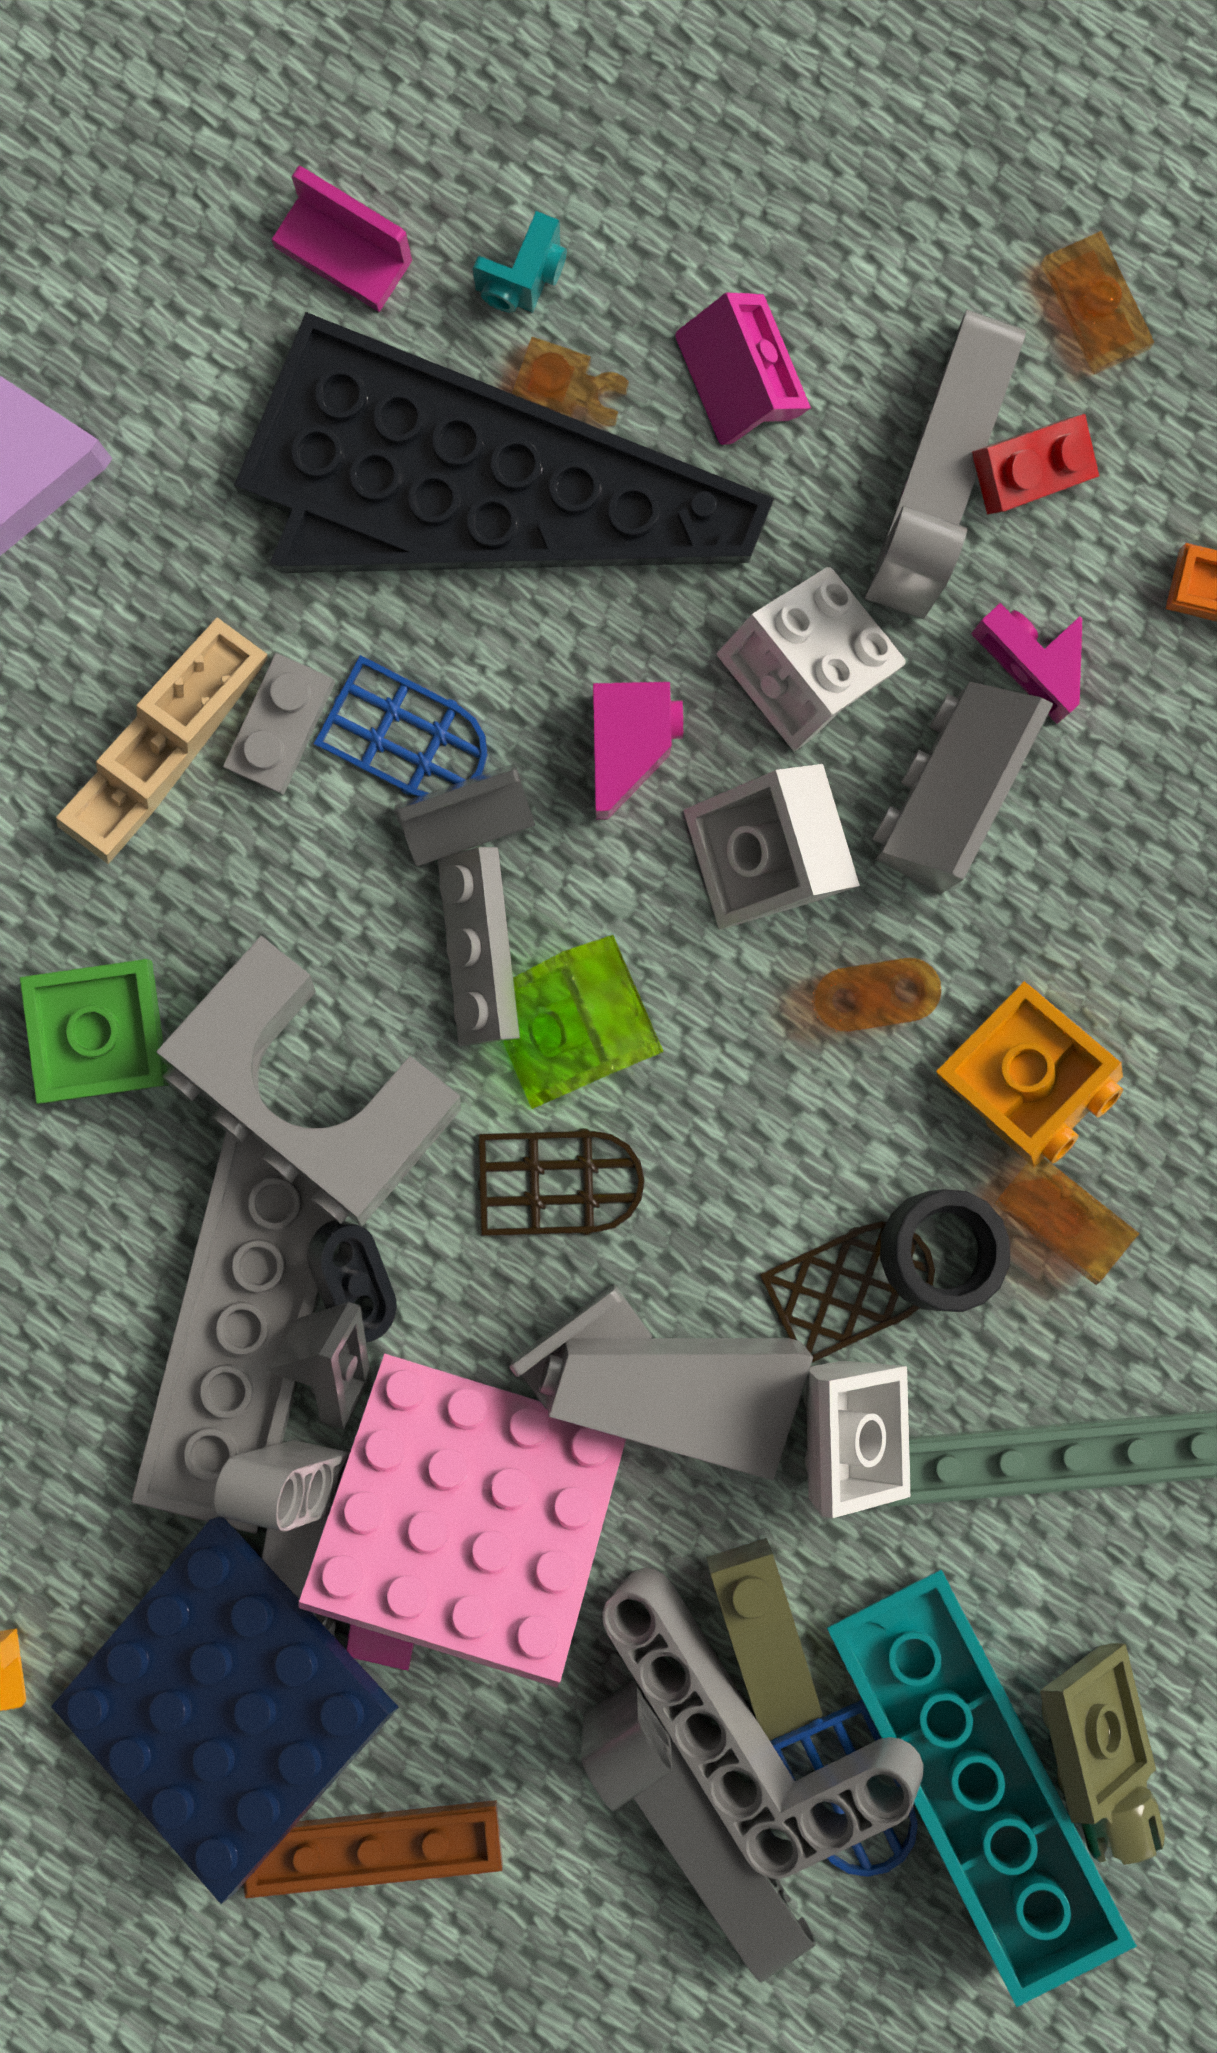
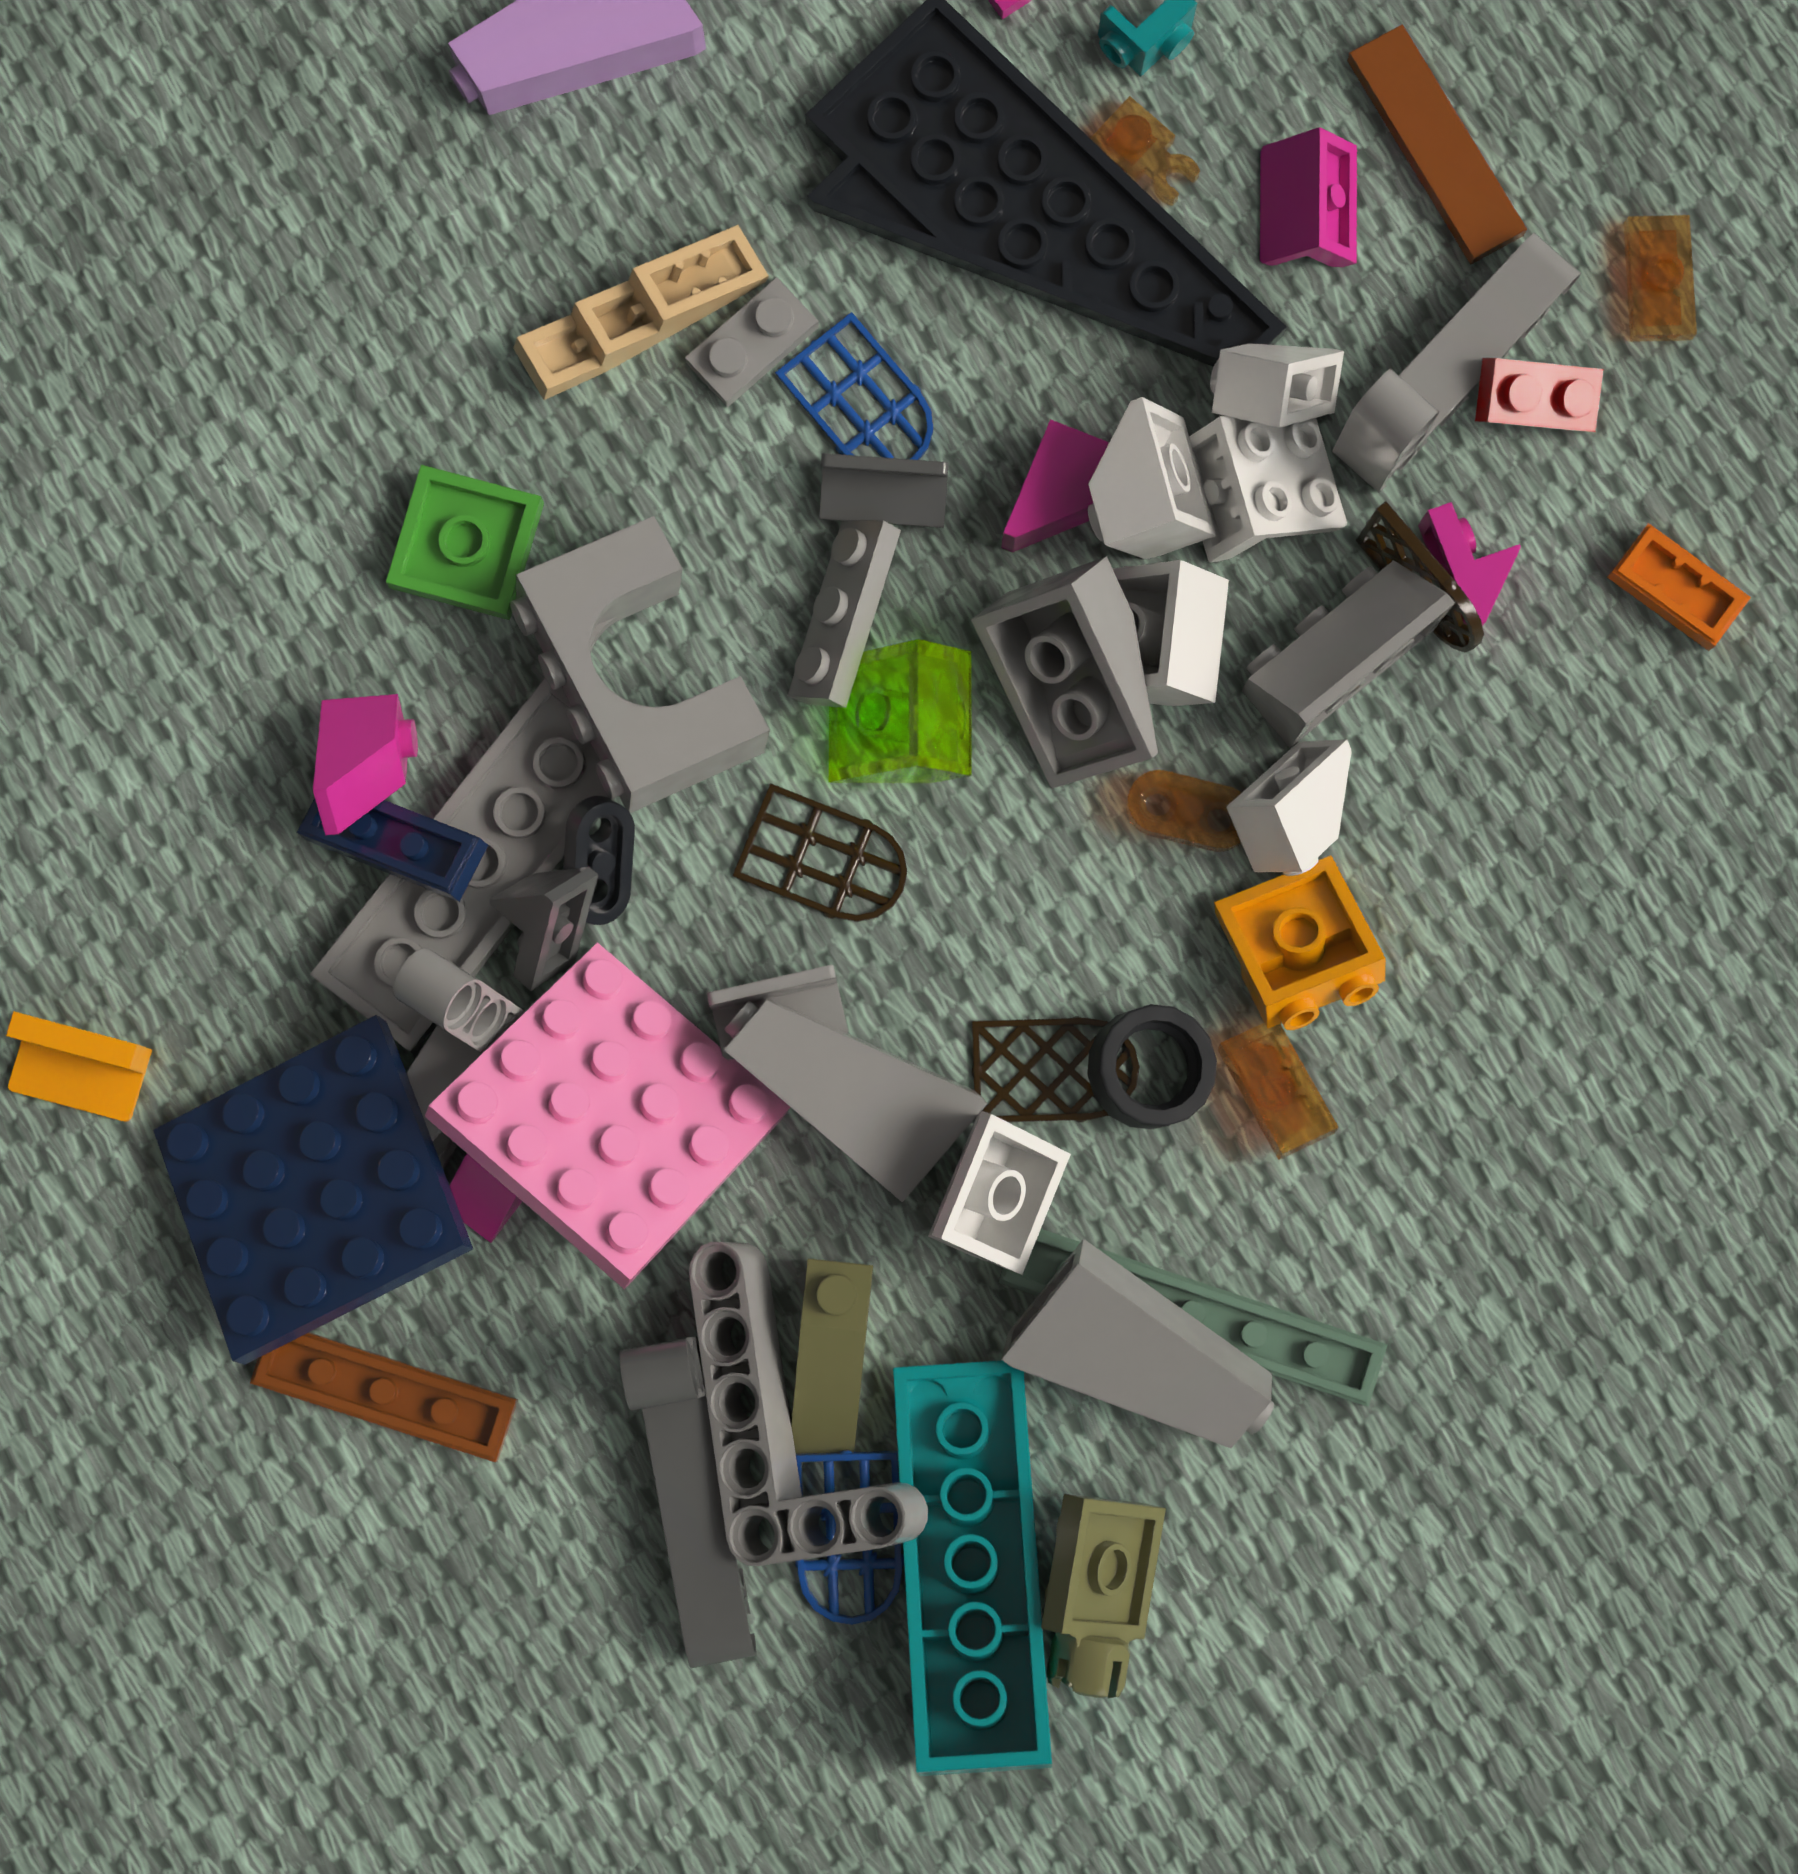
camera: 30 degrees right, 5 degrees down
(85, 1284) = (360, 757): none -> dark pink slope
(152, 1344) = (404, 846): none -> dark blue tile
(713, 708) = (1149, 486): none -> white slope
(716, 914) = (1072, 671): none -> light grey slope
(788, 558) = (1276, 383): none -> white slope
(837, 261) = (1436, 144): none -> dark orange tile
(974, 952) = (1294, 807): none -> white slope
(1001, 673) = (1428, 568): none -> dark brown window
(1044, 1519) = (1137, 1350): none -> light grey slope

